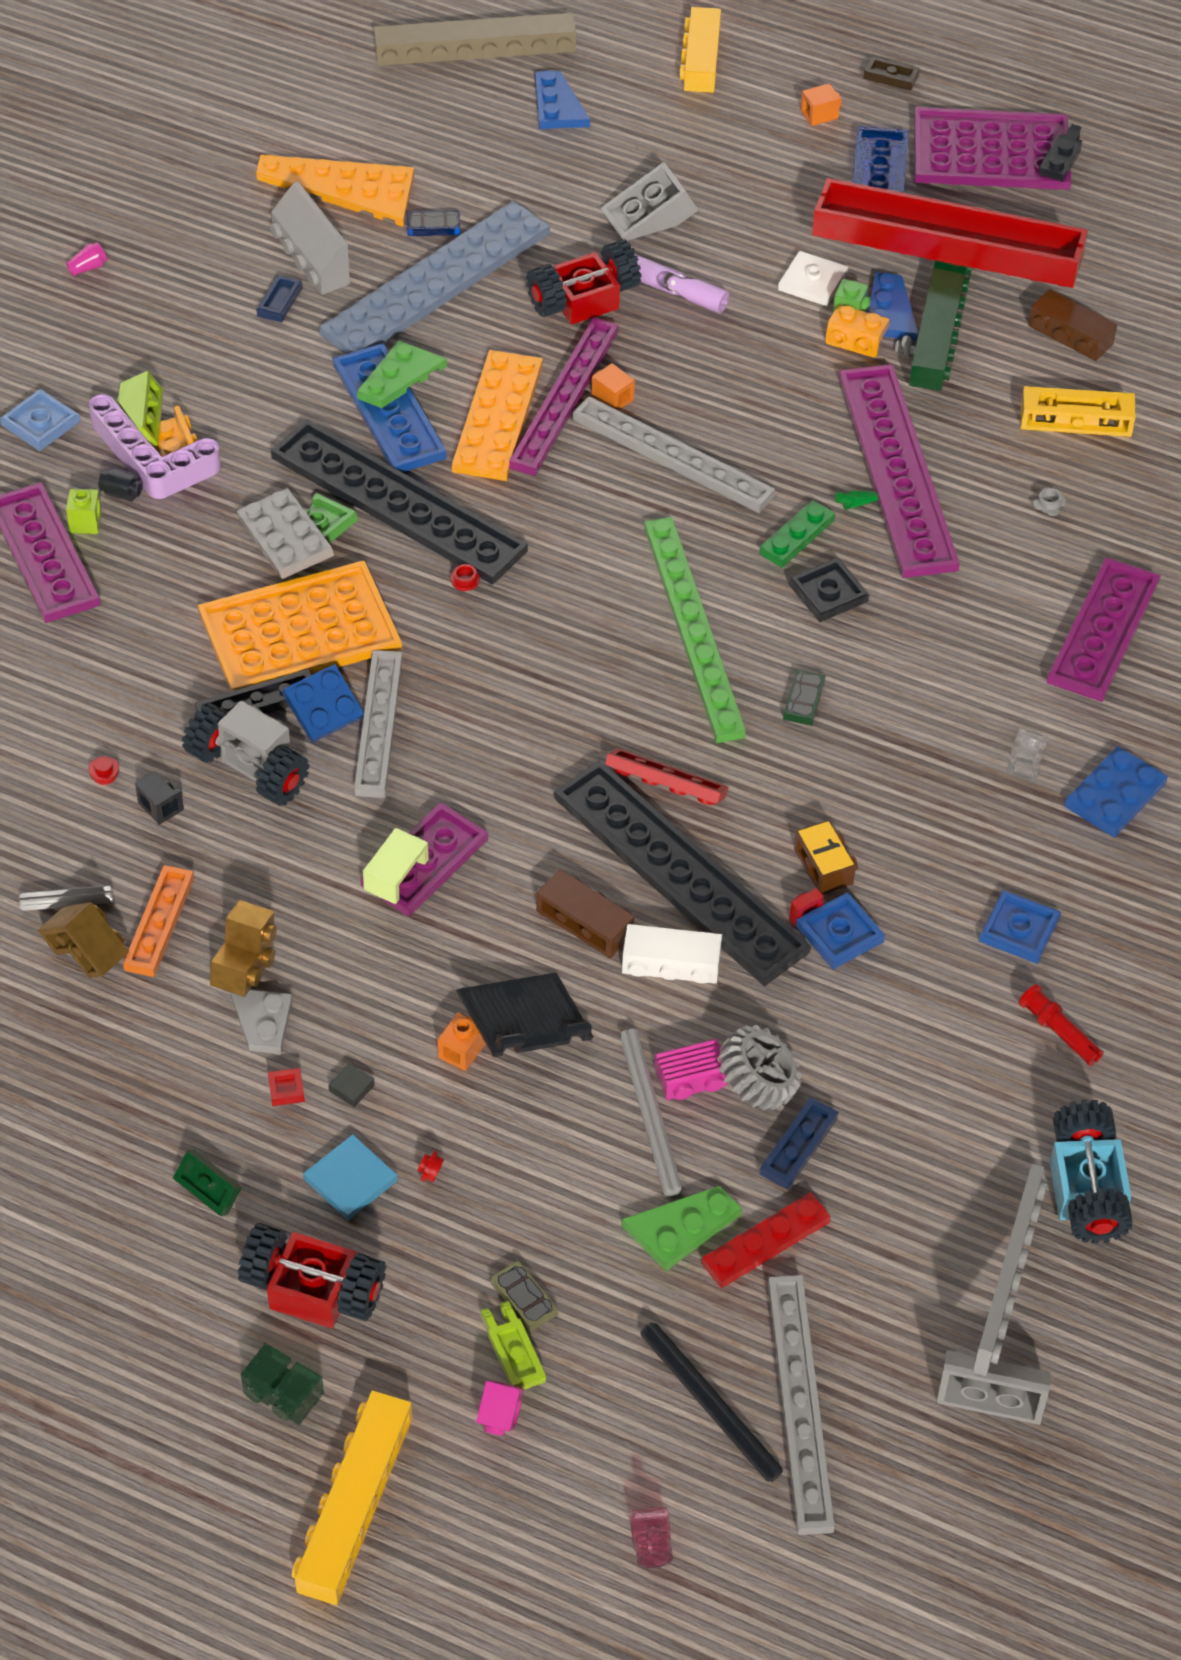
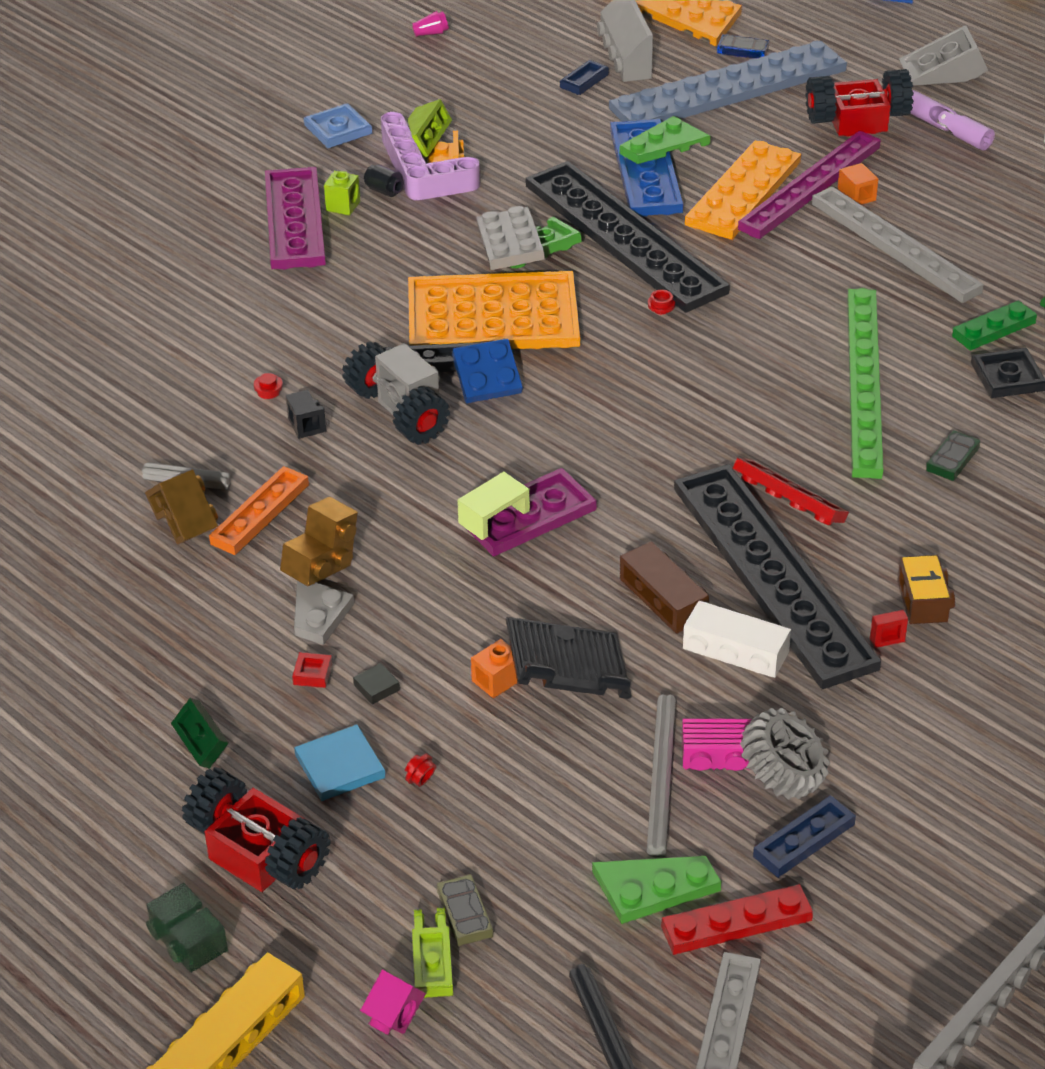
camera: 20 degrees right, 10 degrees down
(378, 724) = (531, 398): light grey plate -> none
(840, 930) = (917, 656): blue plate -> none

